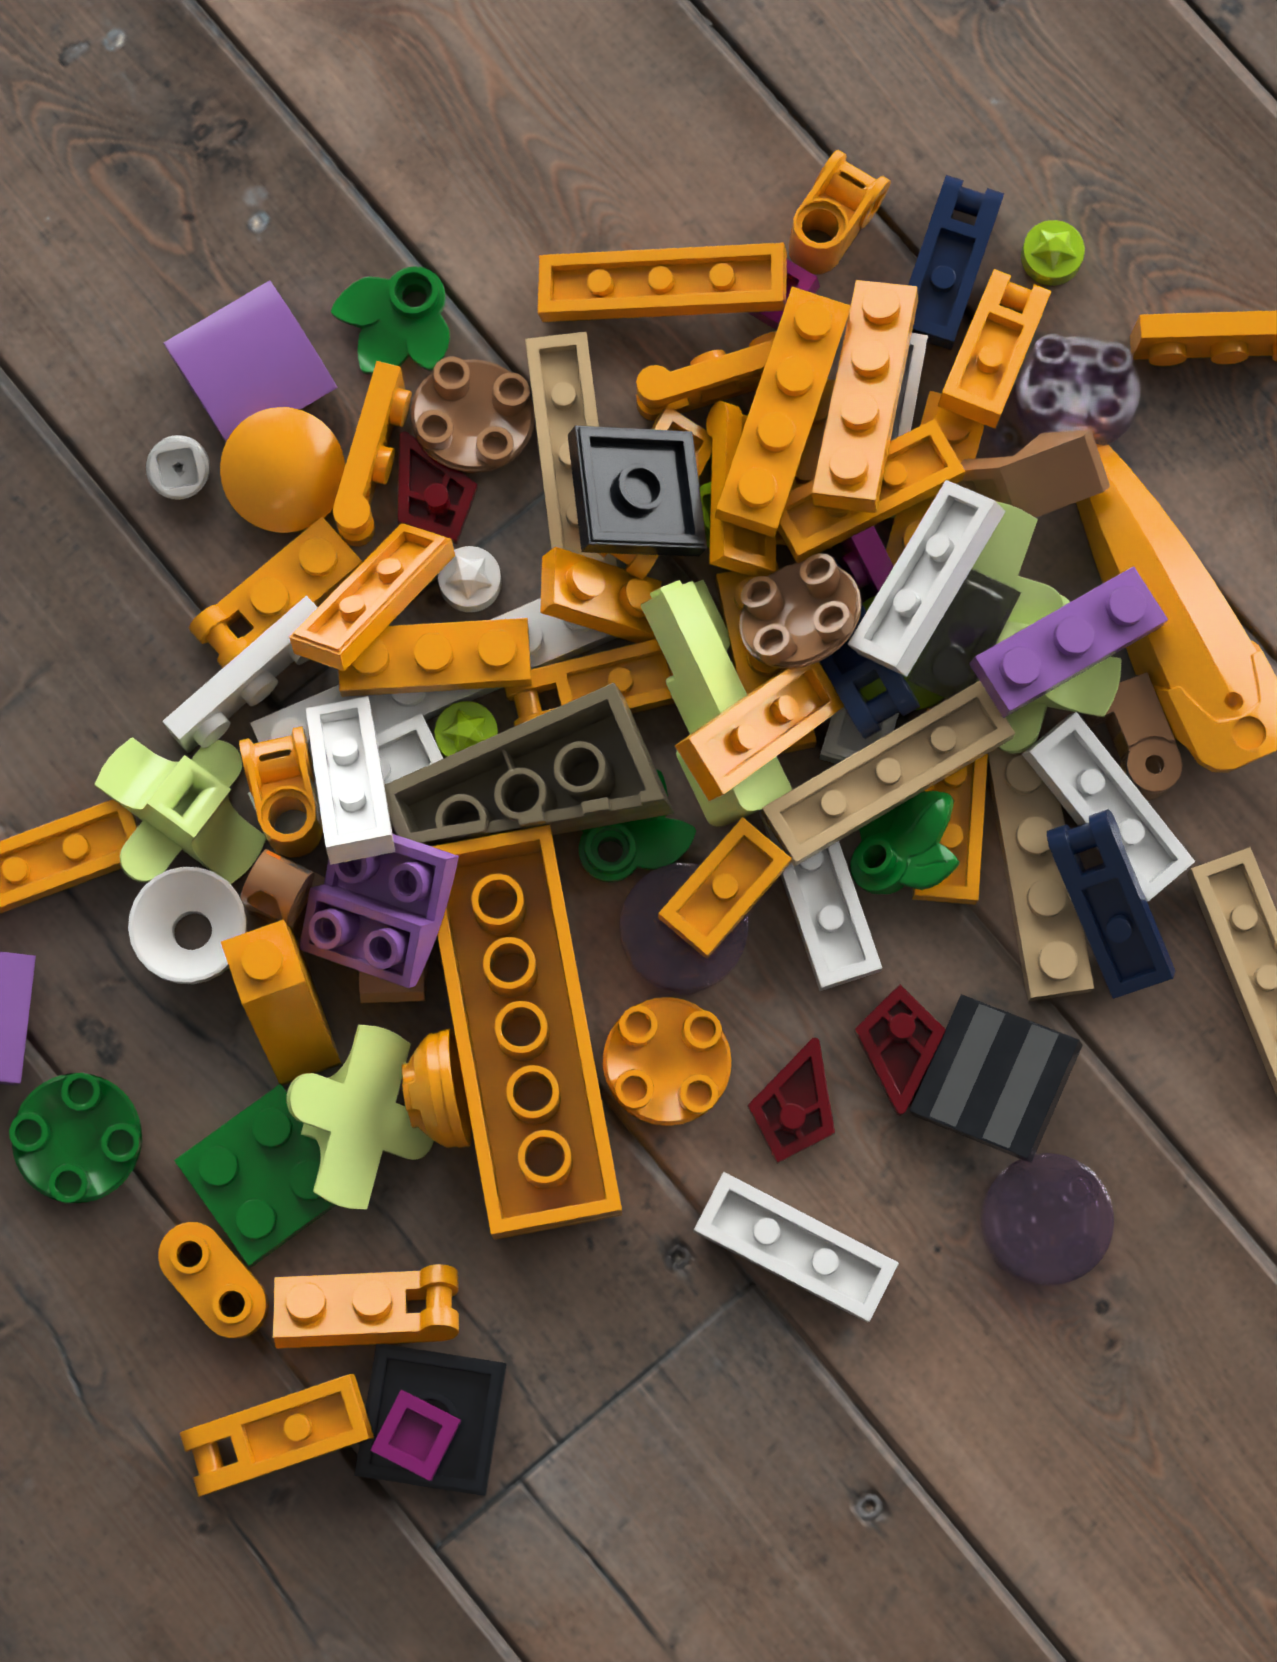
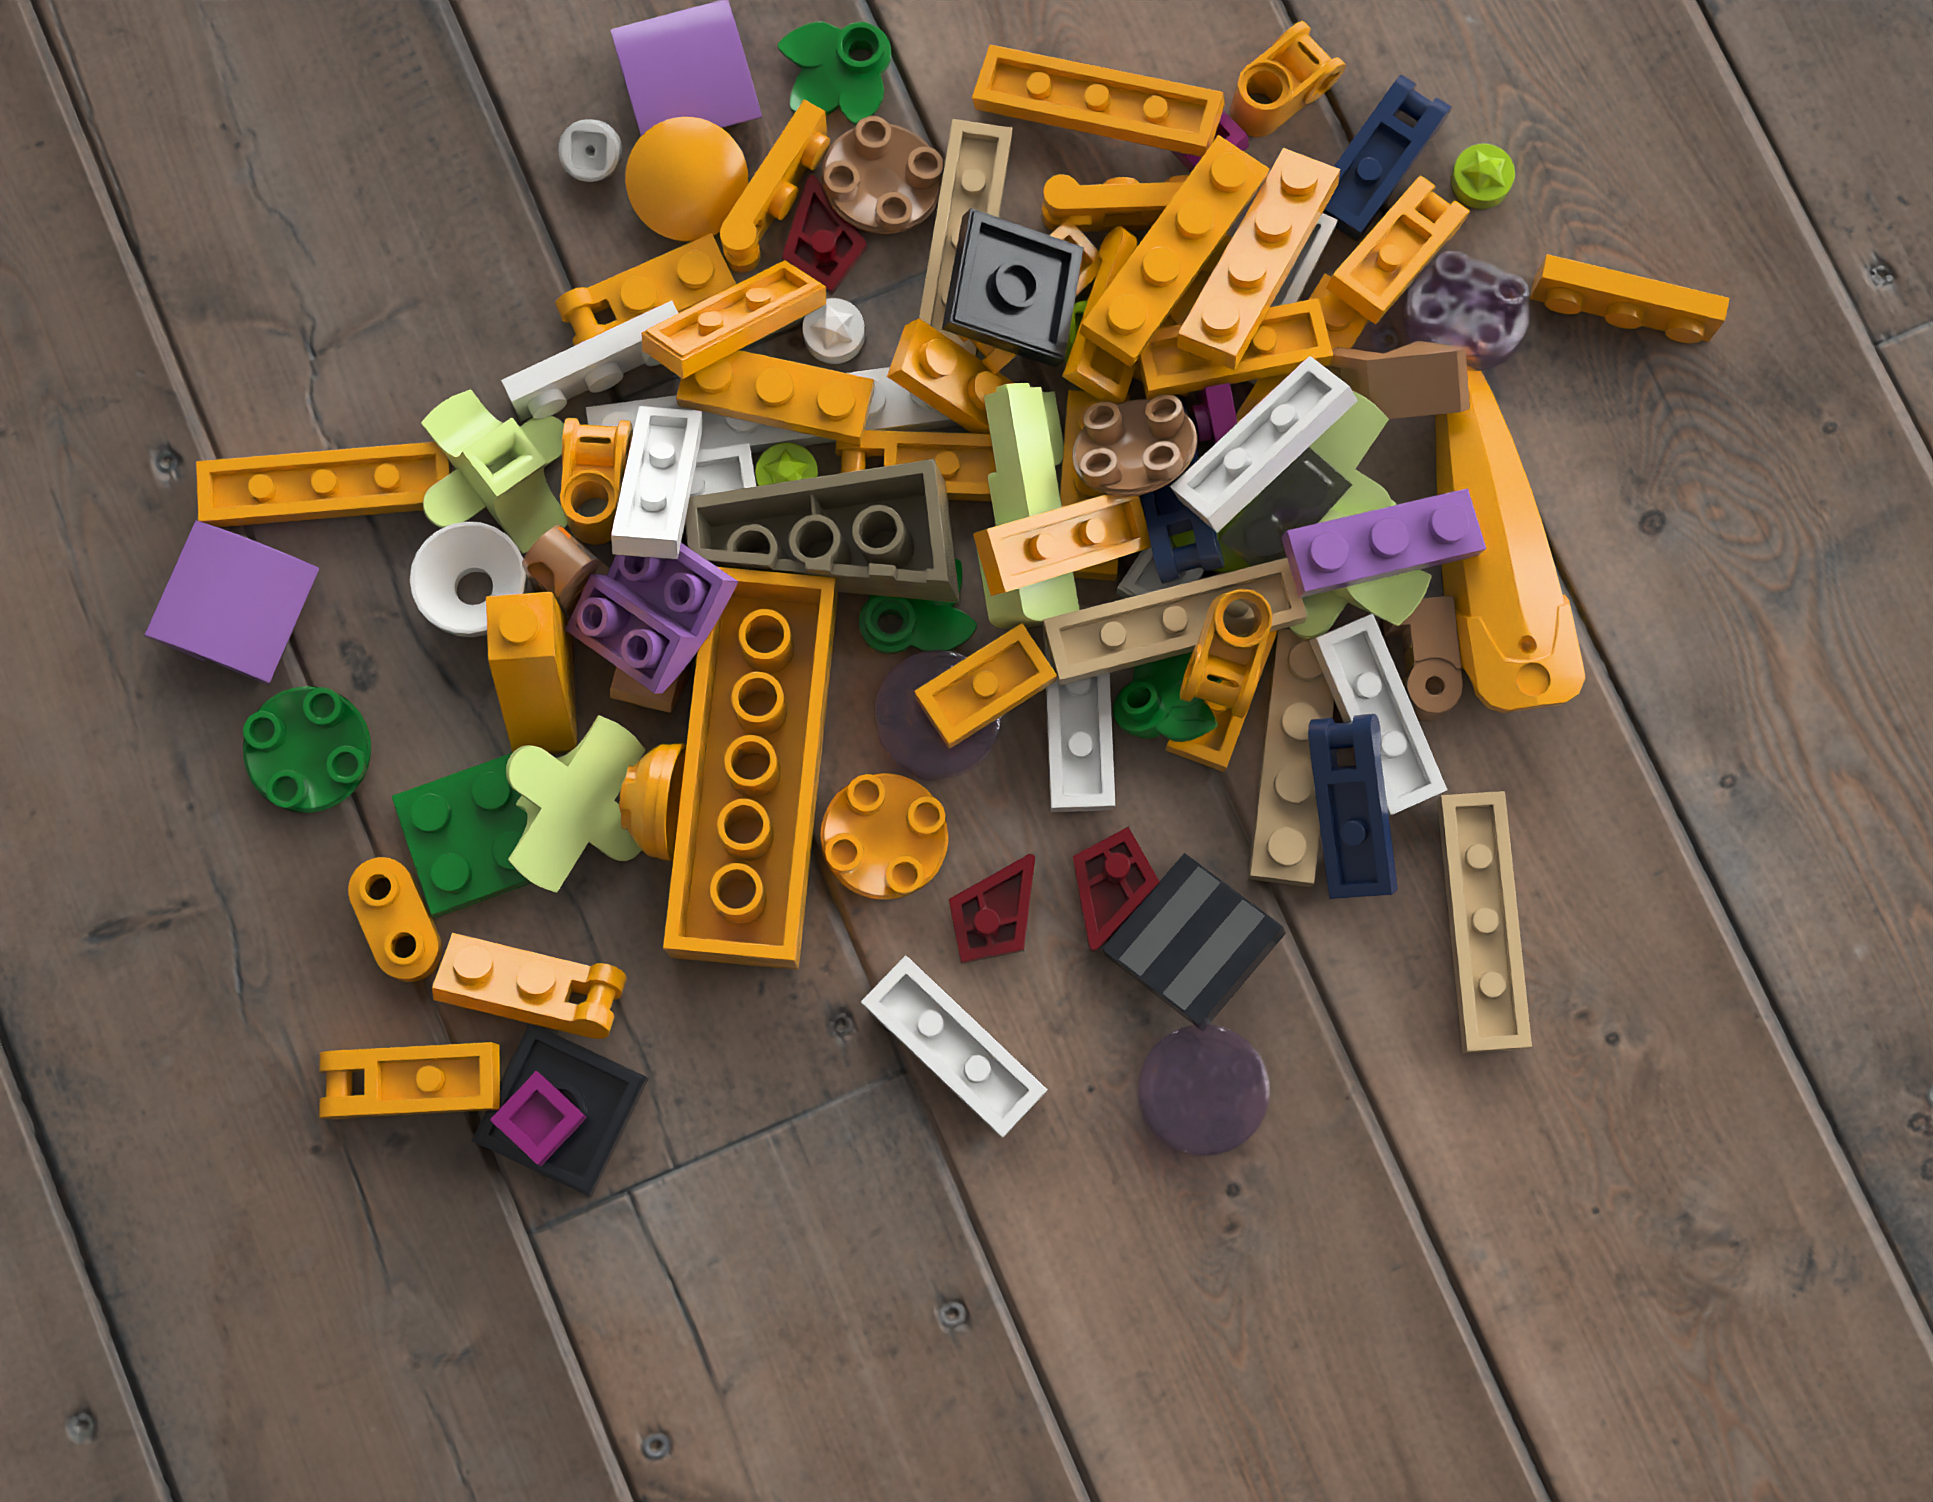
camera: 15 degrees right, 0 degrees up
(952, 794) = (1228, 656): none -> light orange piece

